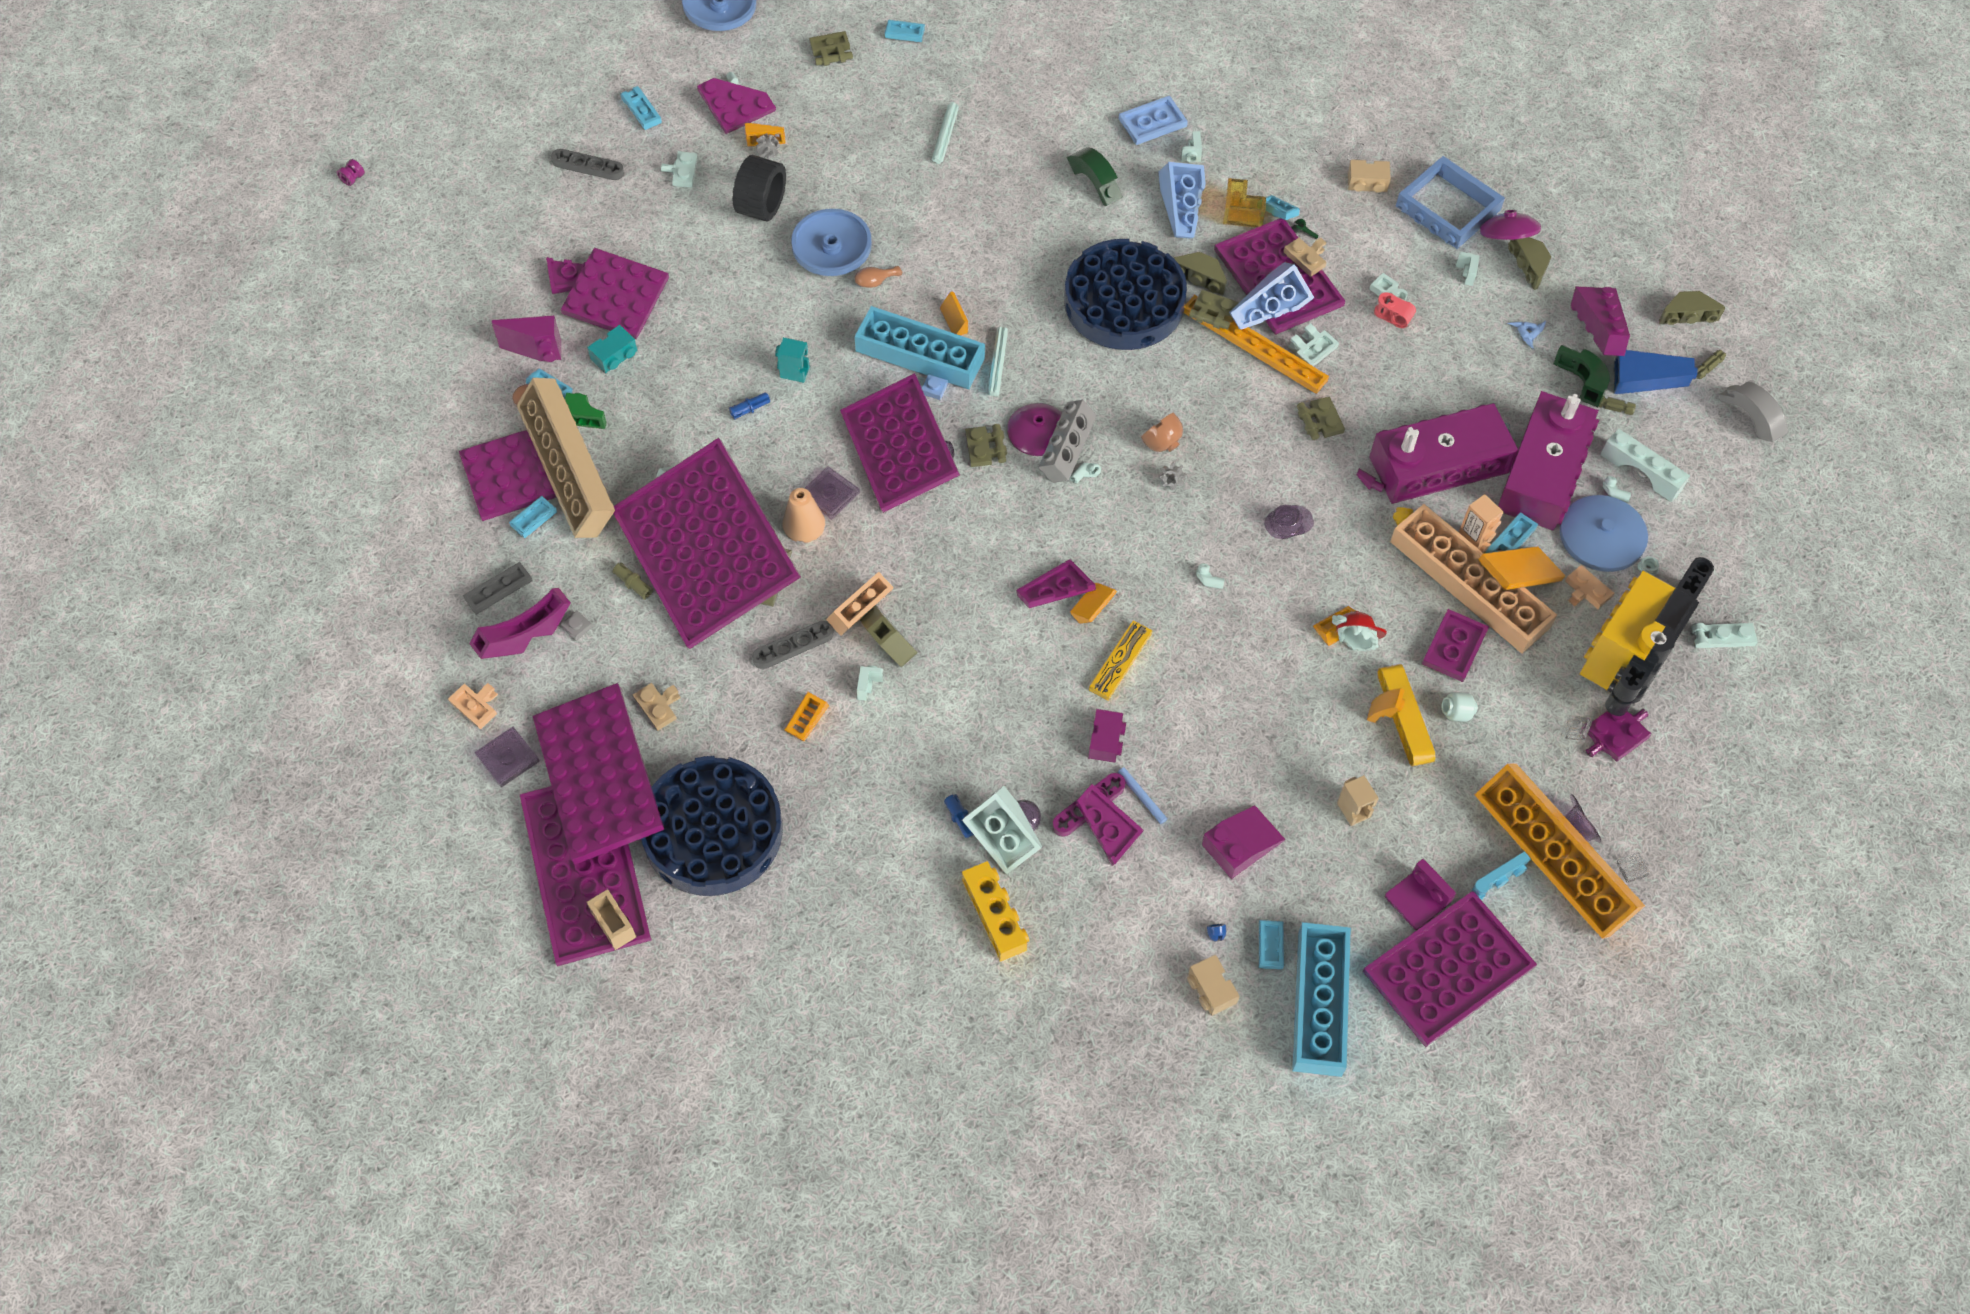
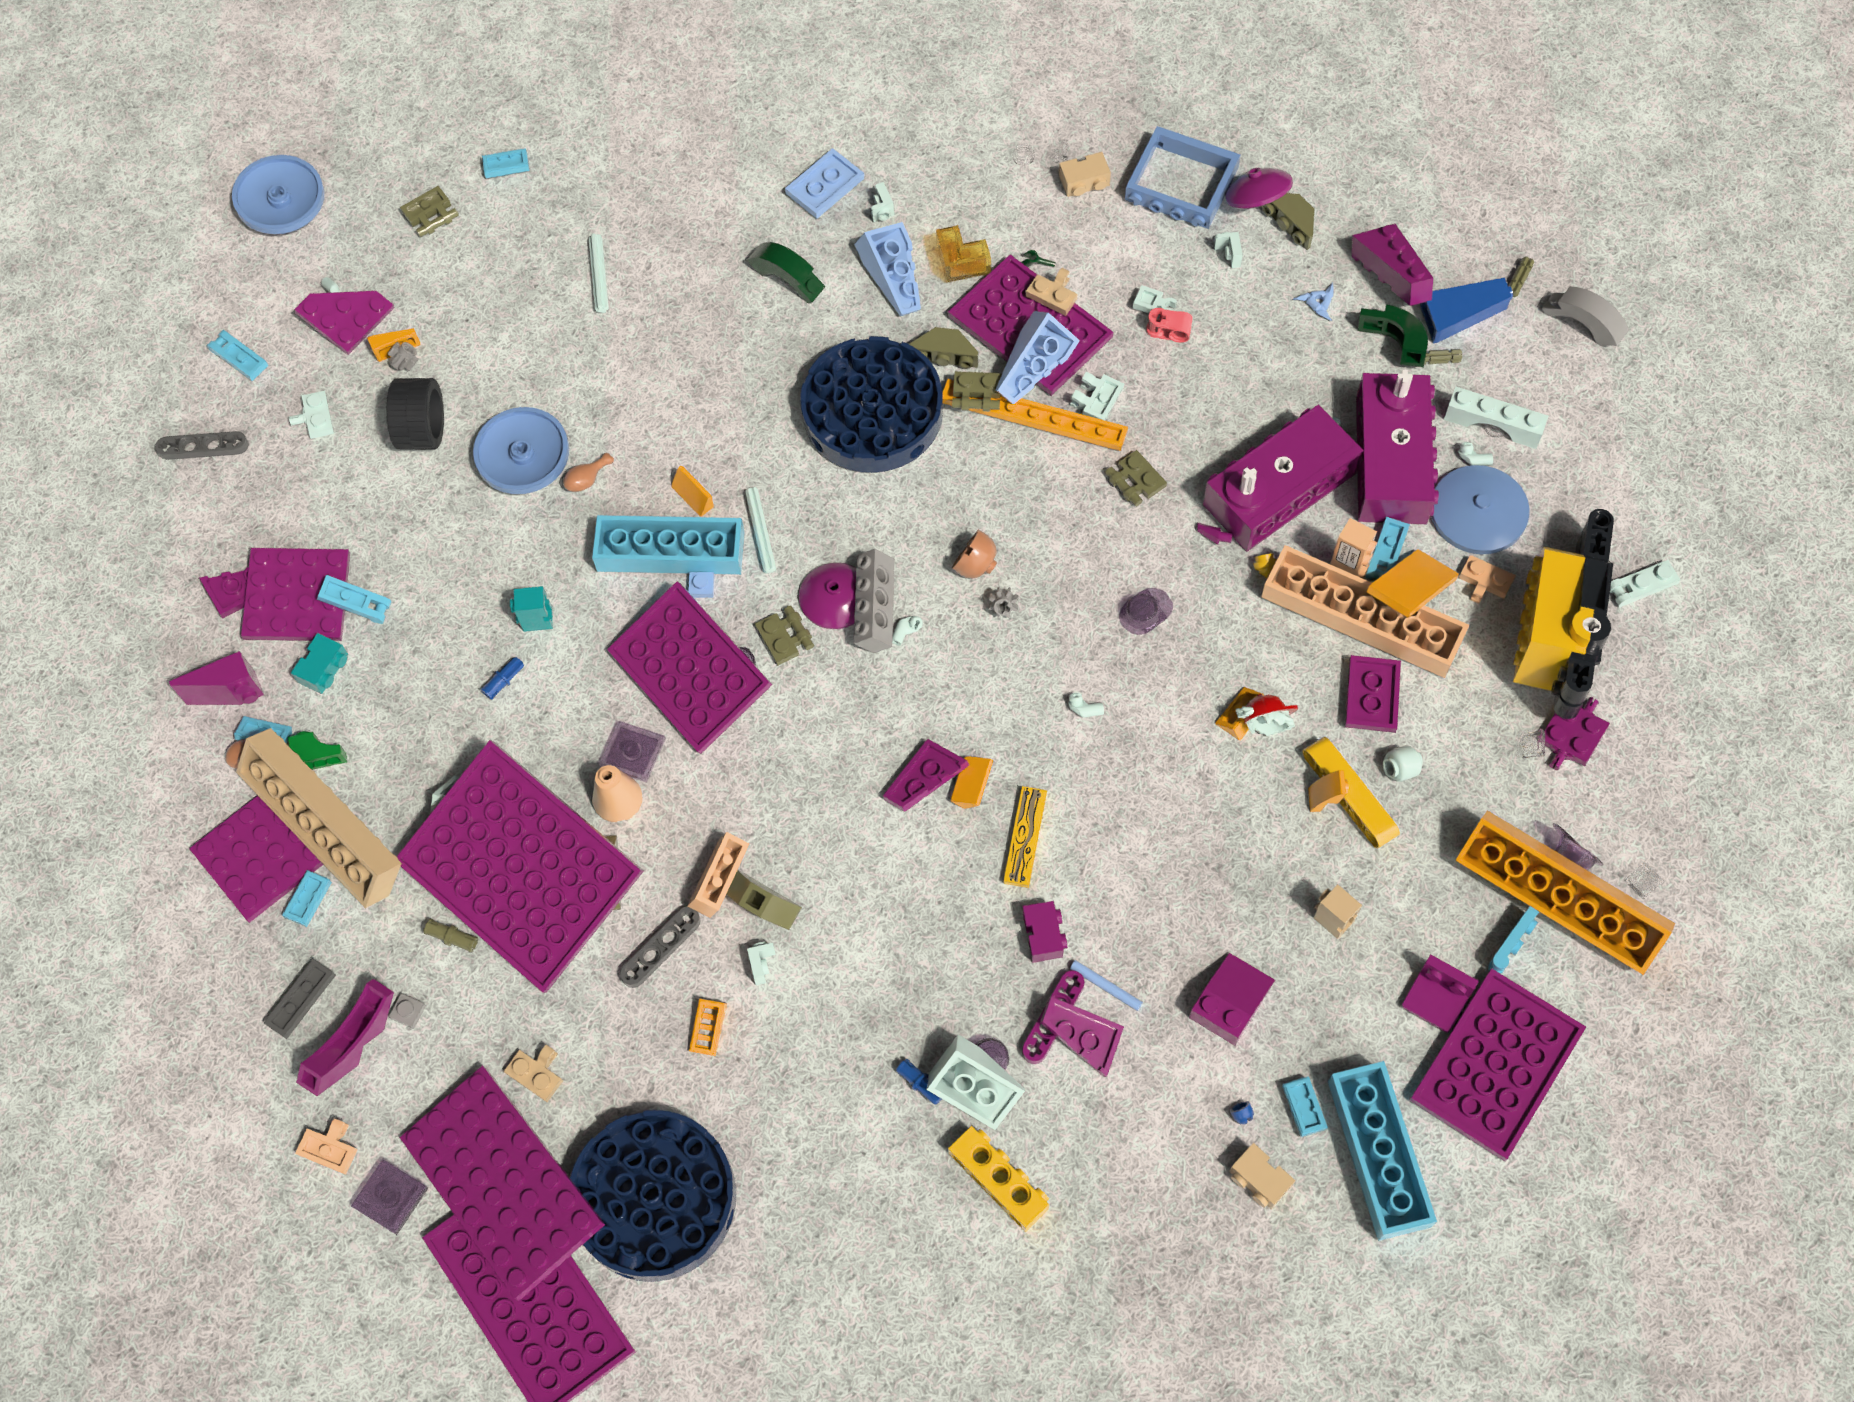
camera: 15 degrees left, 5 degrees up
(611, 919) = (585, 1350): tan brick -> none
(657, 309) = (353, 599): none -> medium azure plate
(1281, 208) = (1003, 244): medium azure plate -> none
(1650, 562) = (1539, 526): light aqua plate -> none
(1692, 308) = (1480, 218): olive slope -> none

